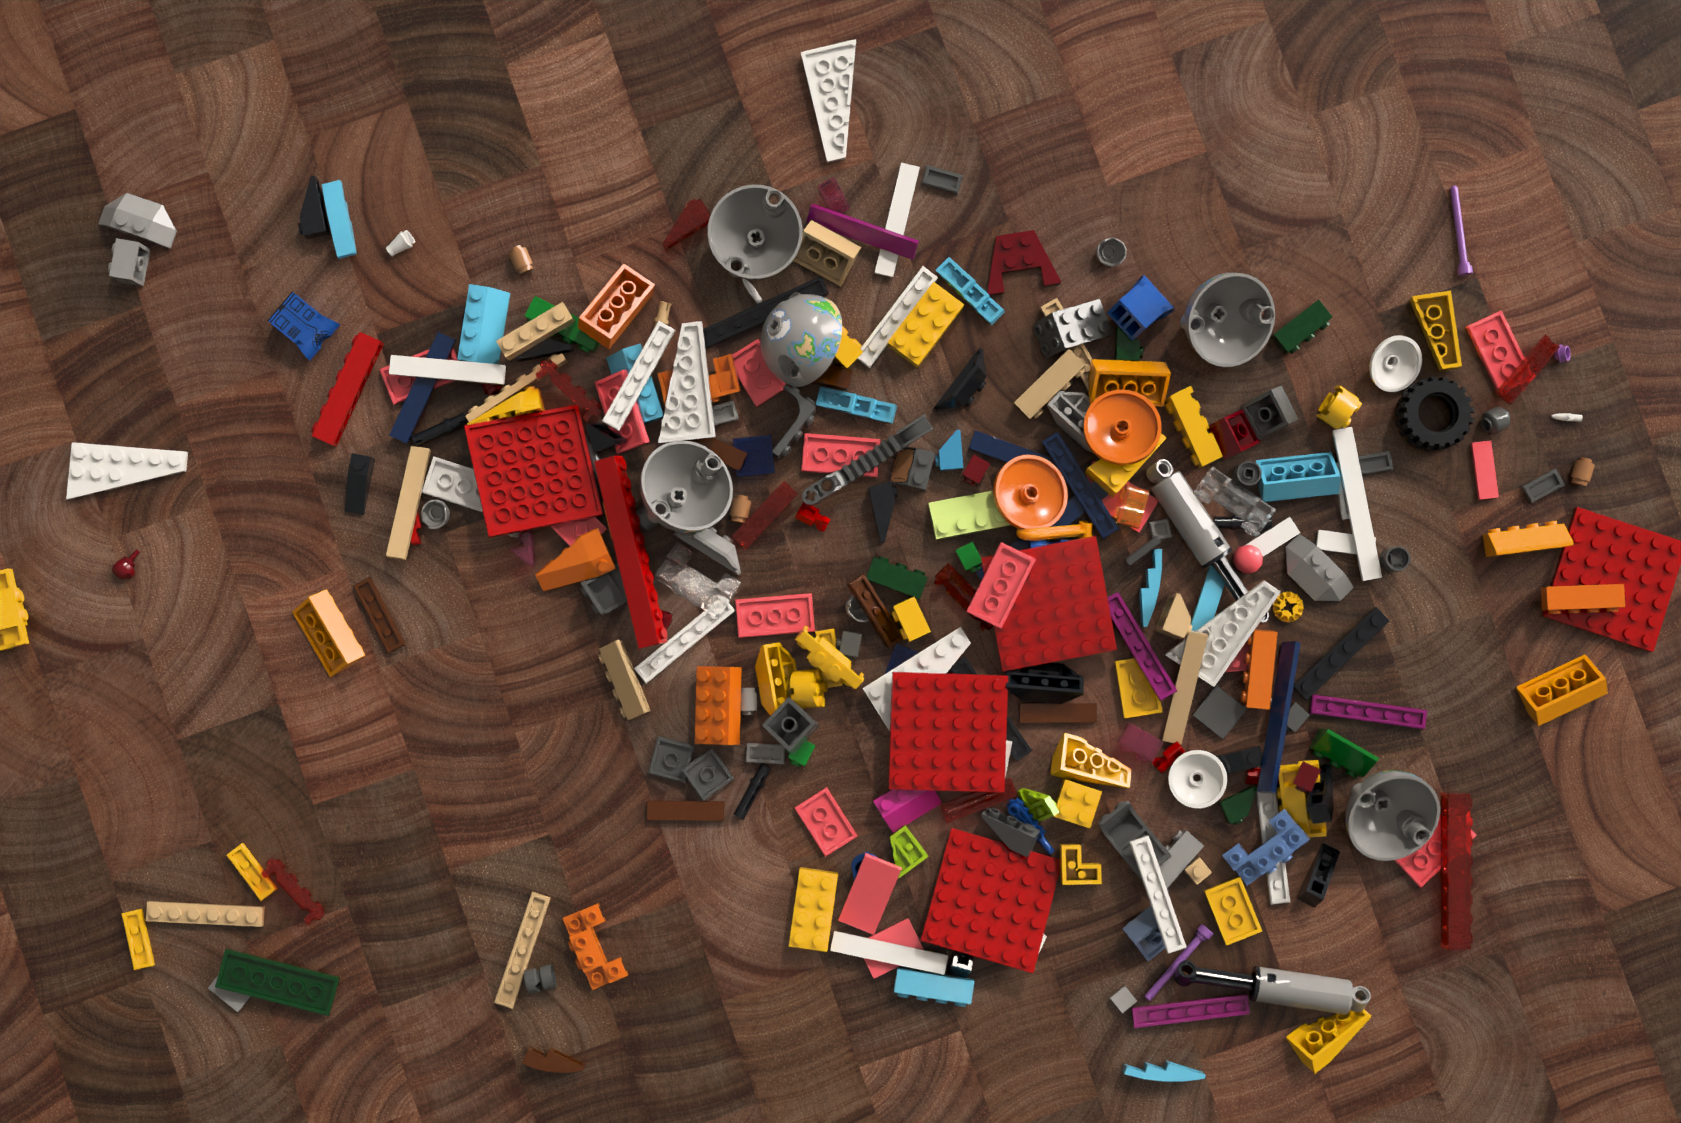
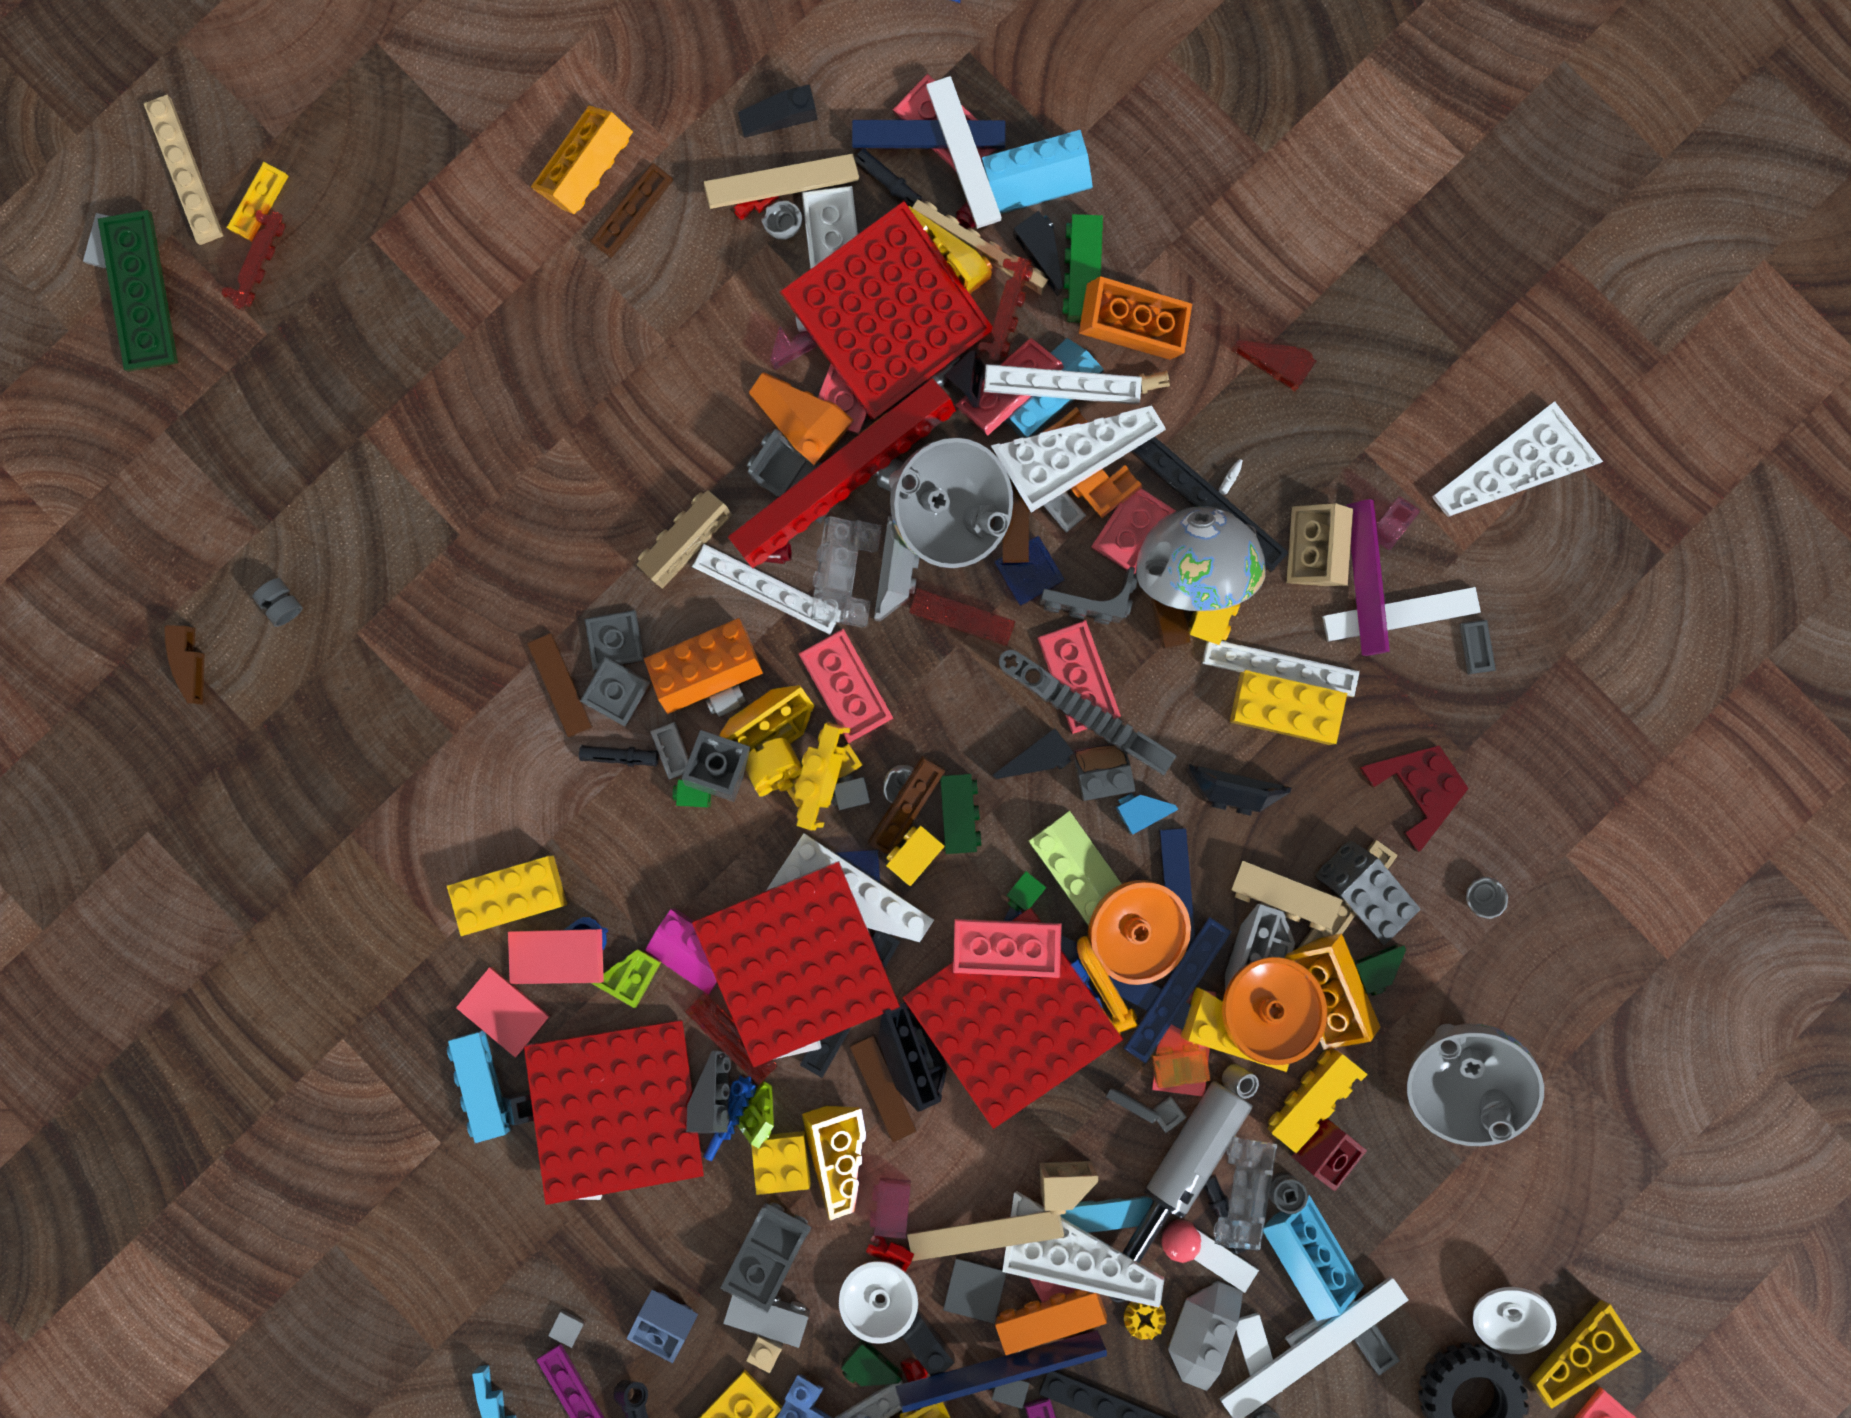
camera: 70 degrees right, 0 degrees up
(138, 939) = (119, 105): yellow tile -> none
(347, 389) = (885, 46): red brick -> none
(401, 242) = (1092, 28): white cone -> none
(521, 260) = (1138, 181): medium nougat brick -> none
(522, 950) = (305, 565): tan tile -> none
(535, 331) = (1059, 234): tan brick -> none
(588, 949) = (339, 643): orange bracket -> none
(740, 509) = (956, 583): medium nougat brick -> none
(746, 215) = (1319, 423): light grey piece -> none
(810, 515) = (988, 673): red plate -> none
(826, 821) = (622, 862): coral tile -> none
(856, 405) = (1149, 668): medium azure slope -> none
(889, 952) = (495, 1013): white tile -> none
(959, 590) = (979, 896): clear red piece -> none
(970, 291) = (1355, 744): medium azure slope -> none
(975, 470) = (1136, 851): dark red brick -> none
(1073, 870) = (696, 1196): yellow brick -> none
(1135, 691) = (960, 1174): yellow plate -> none
(1140, 308) = (1433, 965): blue piece -> none
(1140, 648) = (1008, 1157): magenta plate -> none
(1149, 595) = (1078, 1137): medium azure slope -> none
(1157, 894) = (710, 1318): white tile -> none
(1202, 934) = (689, 1393): medium lavender piece -> none
(1269, 412) = (1378, 1186): dark grey slope -> none
(1302, 328) = (1503, 1180): dark green brick -> none
(1338, 408) = (1424, 1273): yellow brick -> none
(1464, 267) = (1676, 1352): medium lavender piece -> none

